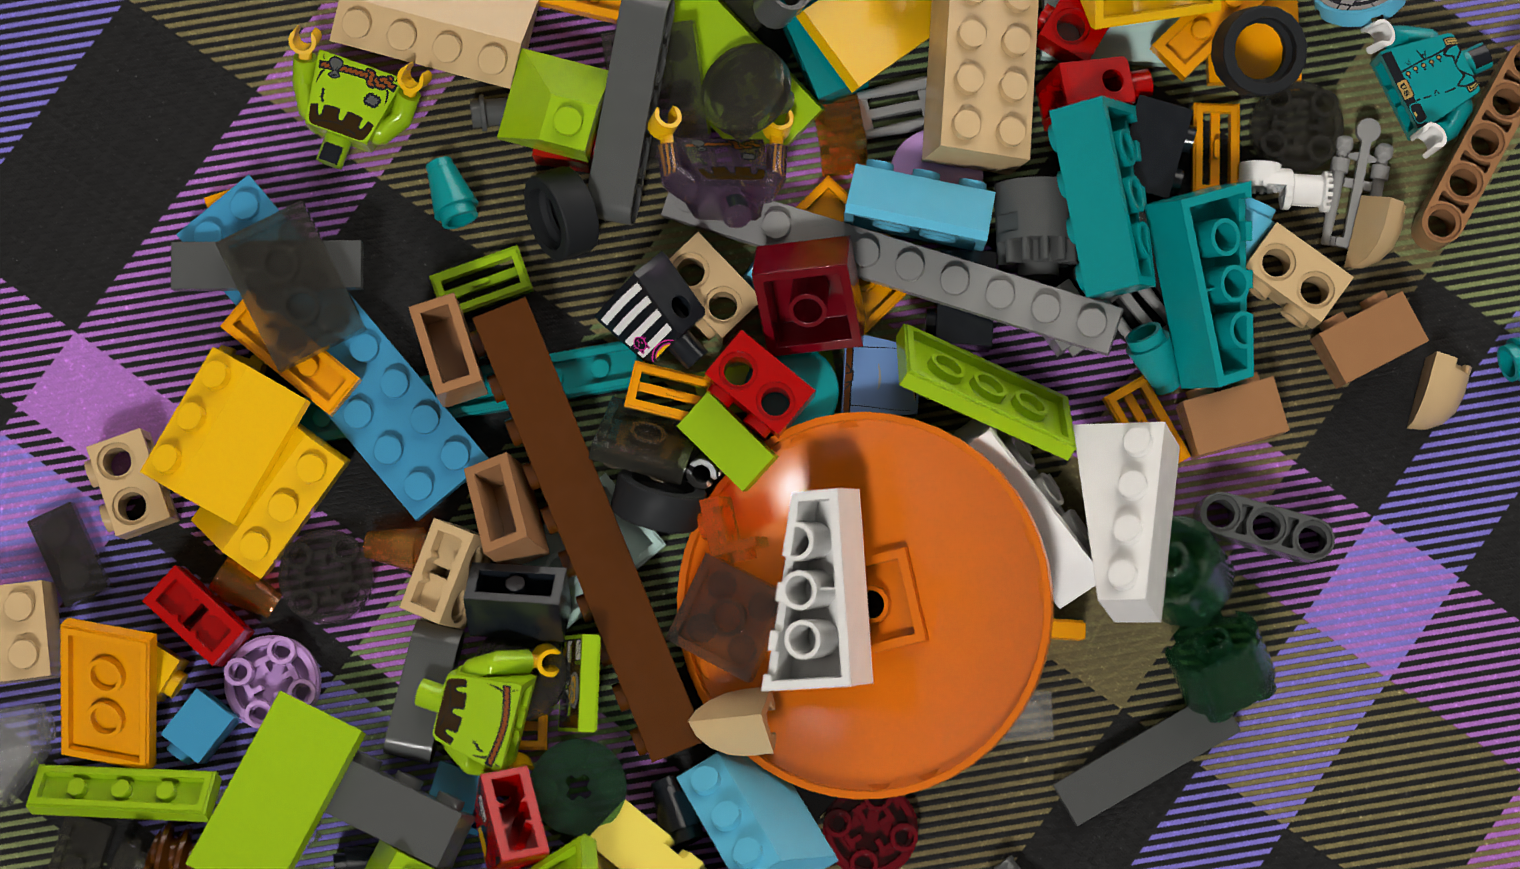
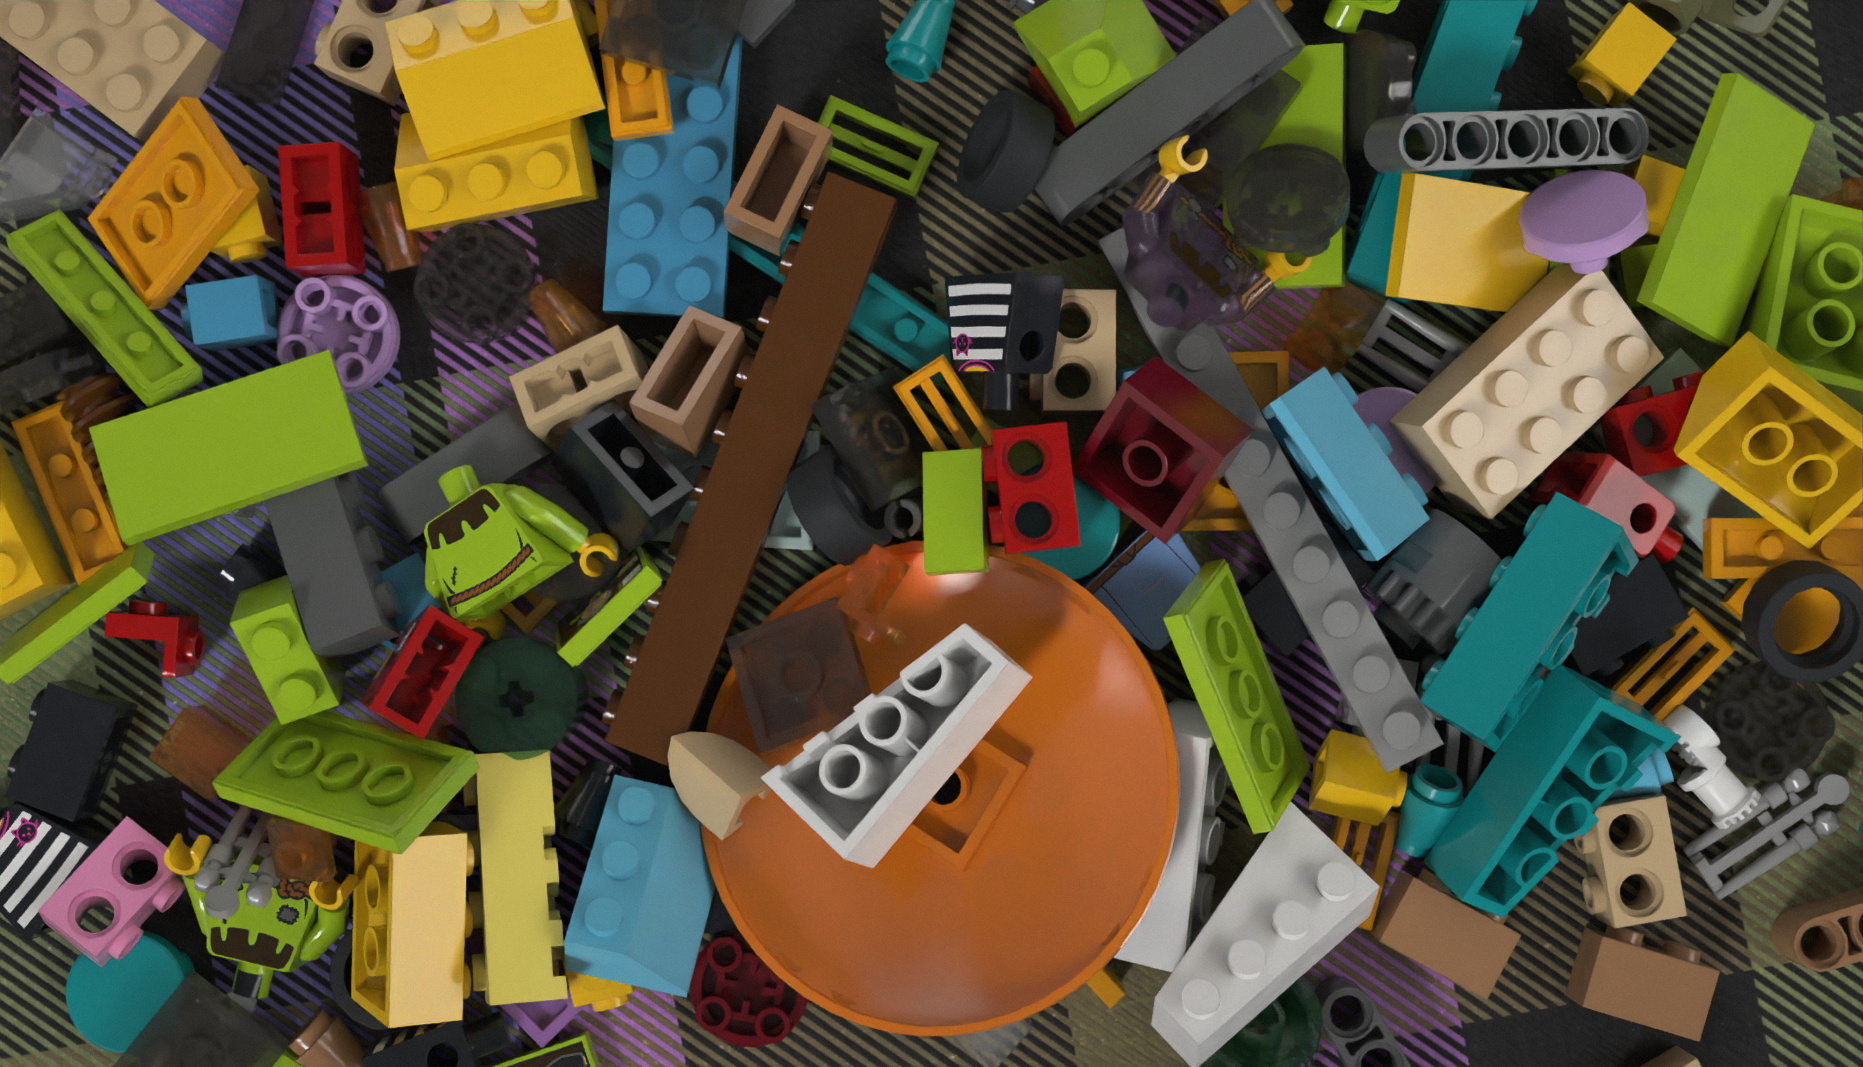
camera: 45 degrees right, 5 degrees up
(1098, 380) = (1352, 781): none -> yellow brick
(1374, 230) = (1747, 888): tan brick -> none

